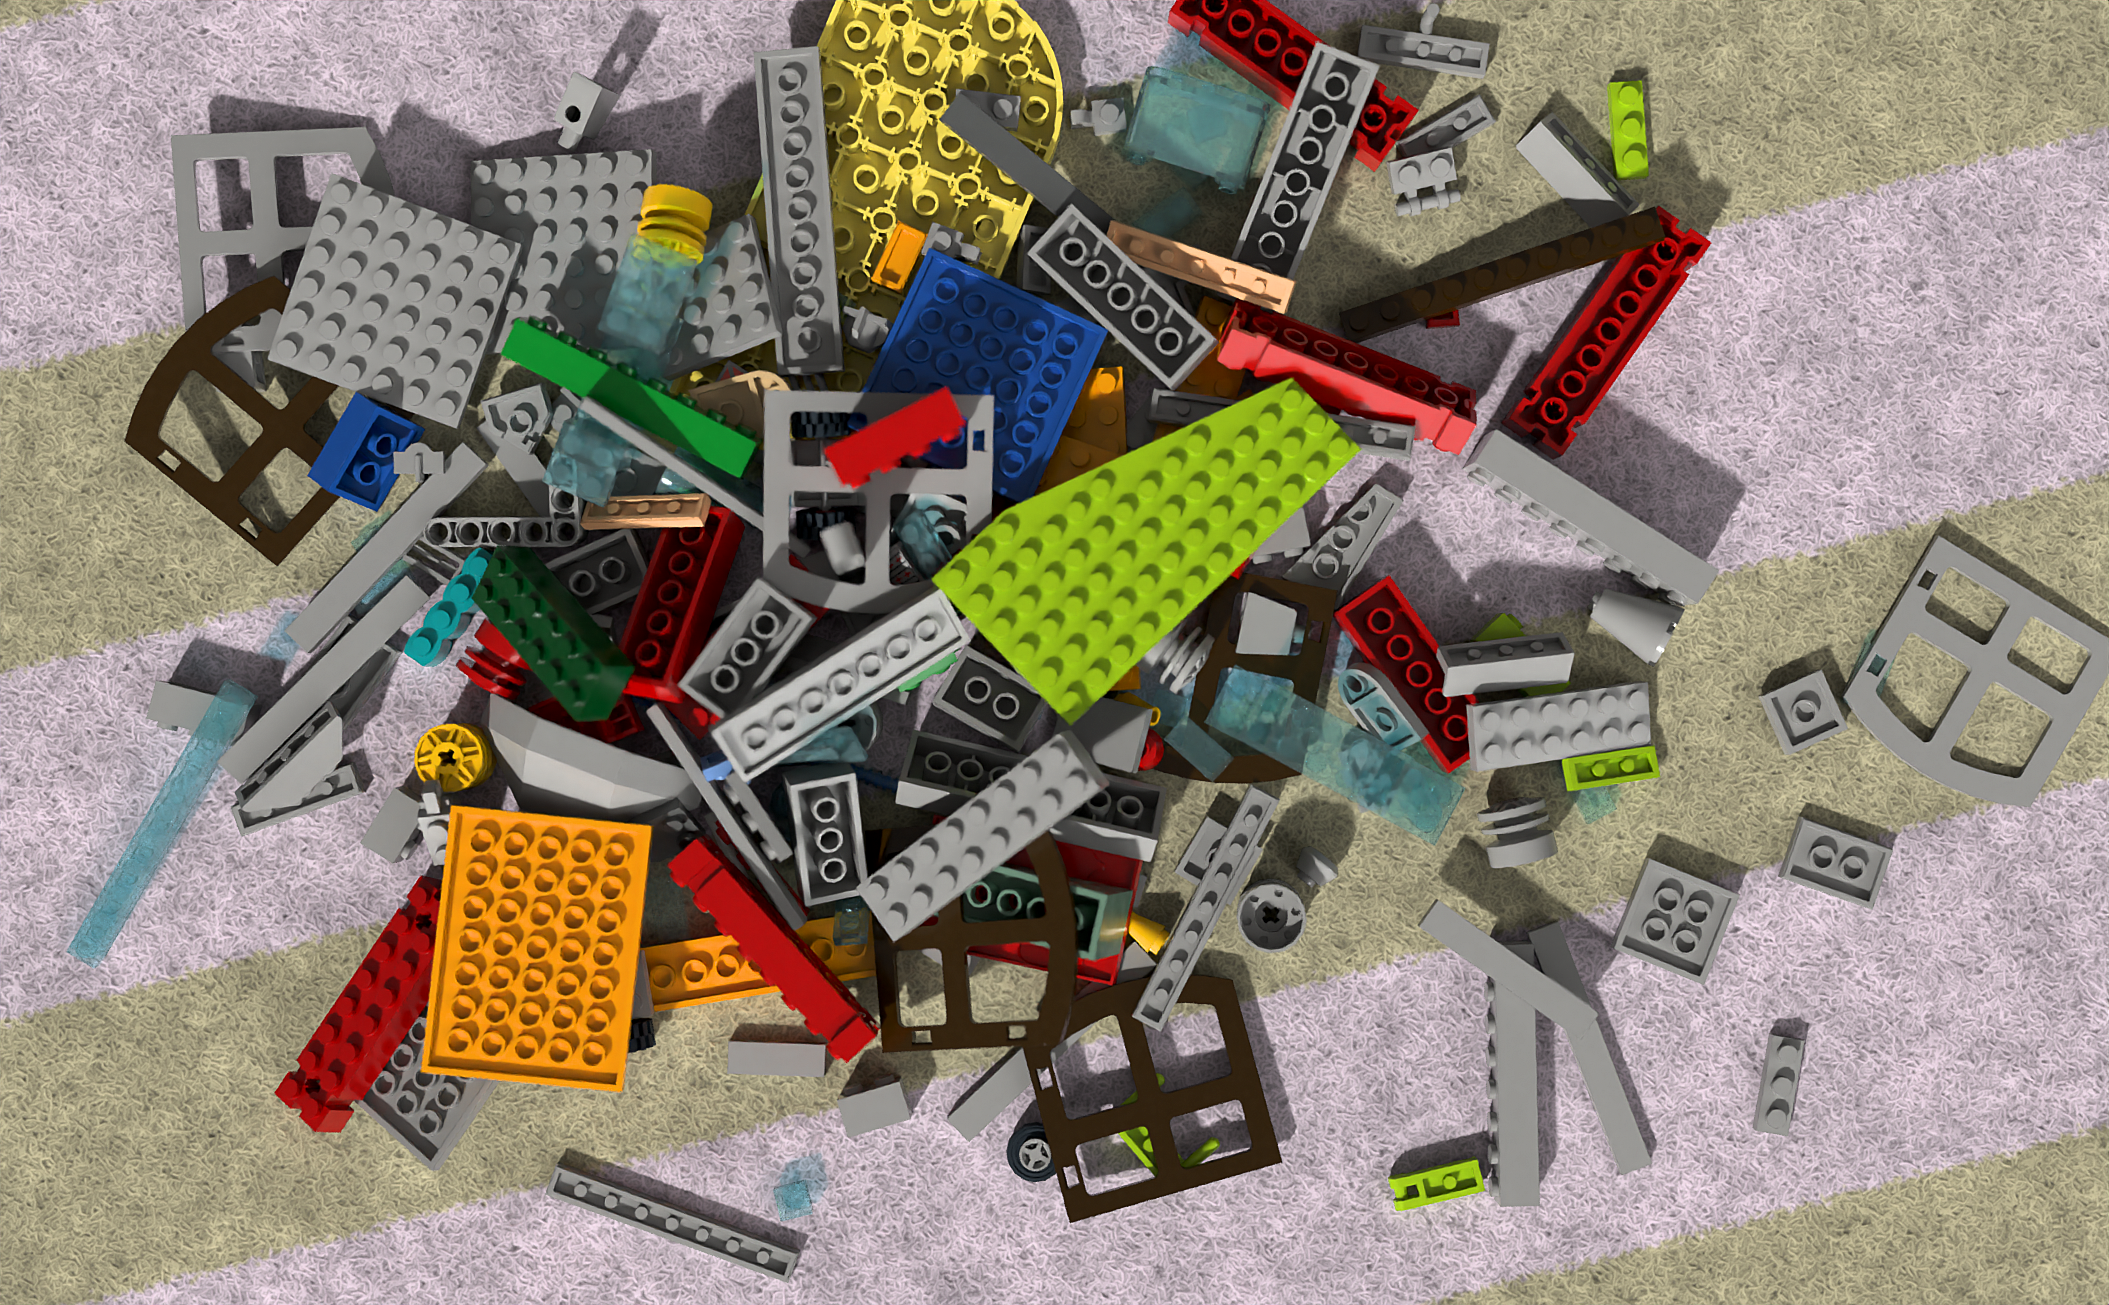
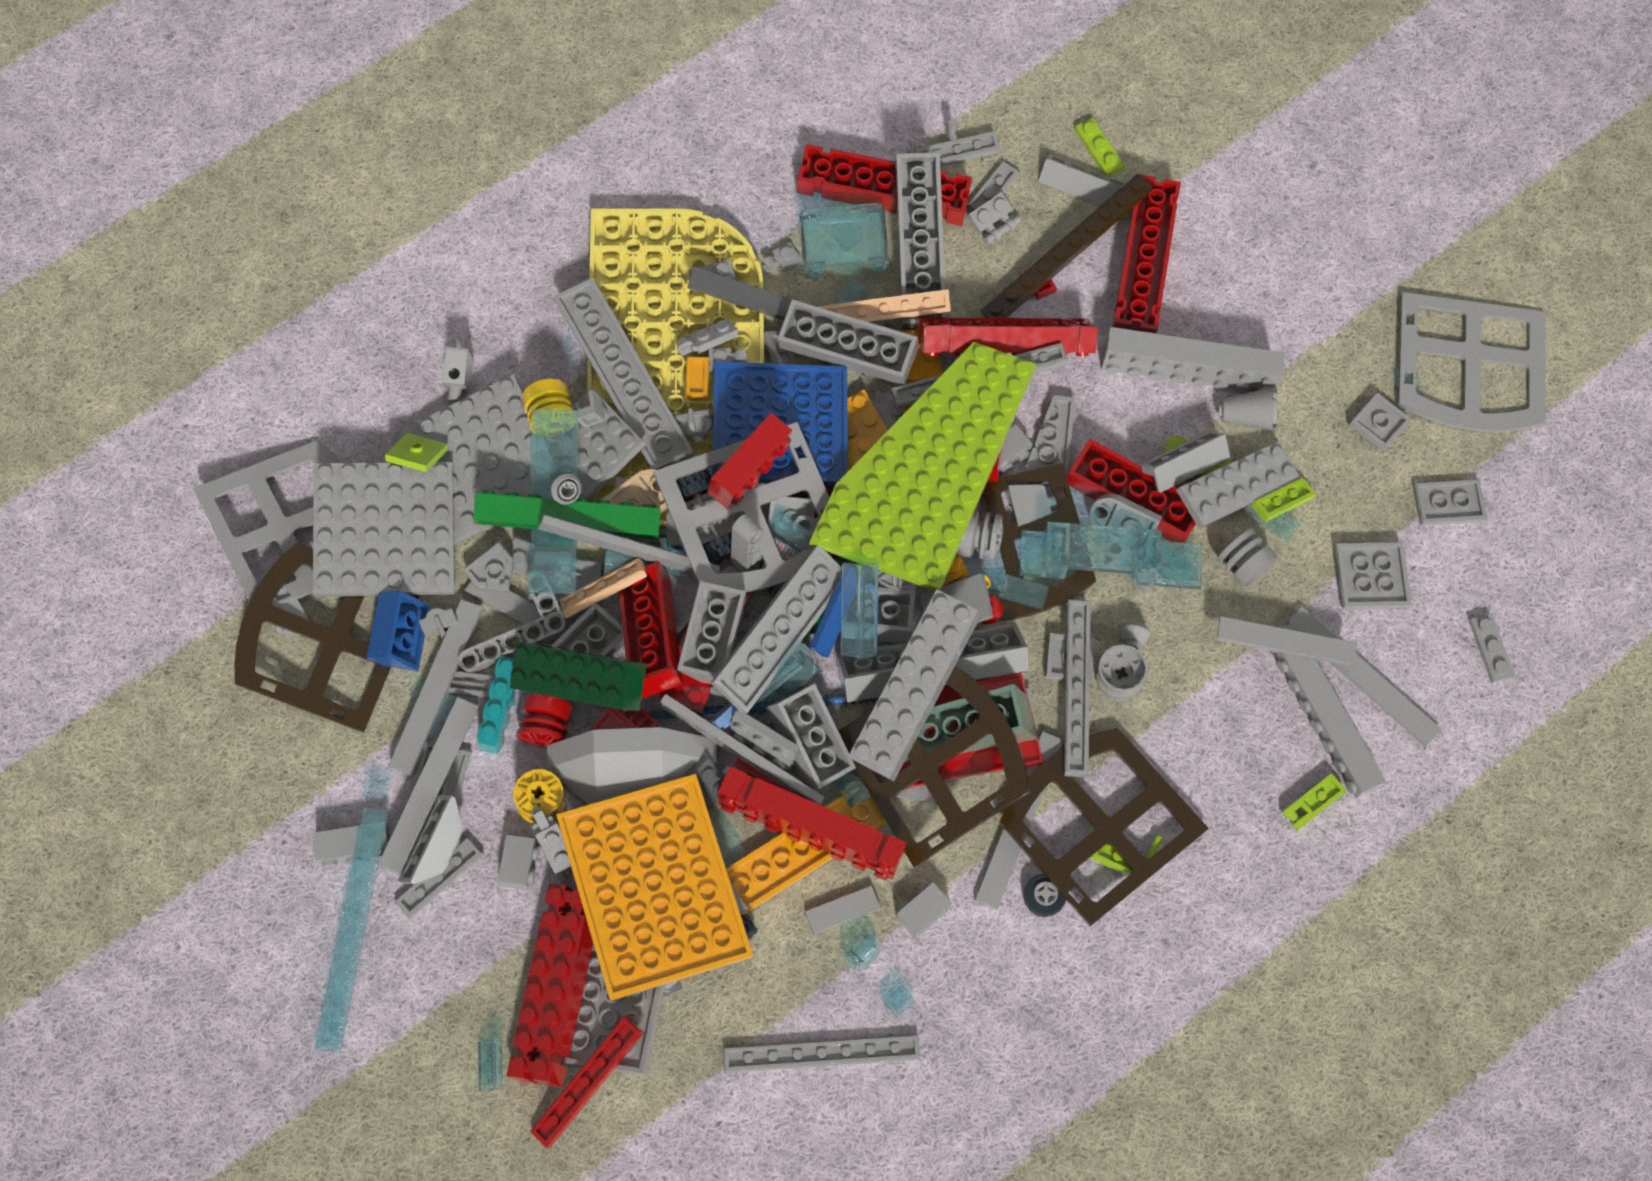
camera: 25 degrees left, 20 degrees down
(266, 1063) = (490, 1064): none -> clear light blue plate
(368, 1142) = (587, 1081): none -> red tile
(477, 210) = (416, 452): none -> lime plate
(634, 366) = (566, 489): none -> light grey cone
(730, 253) = (591, 410): none -> light grey panel
(774, 1123) = (861, 951): none -> clear light blue head
(931, 682) = (829, 625): none -> blue tile
(938, 204) = (707, 337): none -> light grey hinge
(958, 698) = (859, 610): none -> clear light blue panel
(1147, 933) = (1049, 722): yellow cone -> none

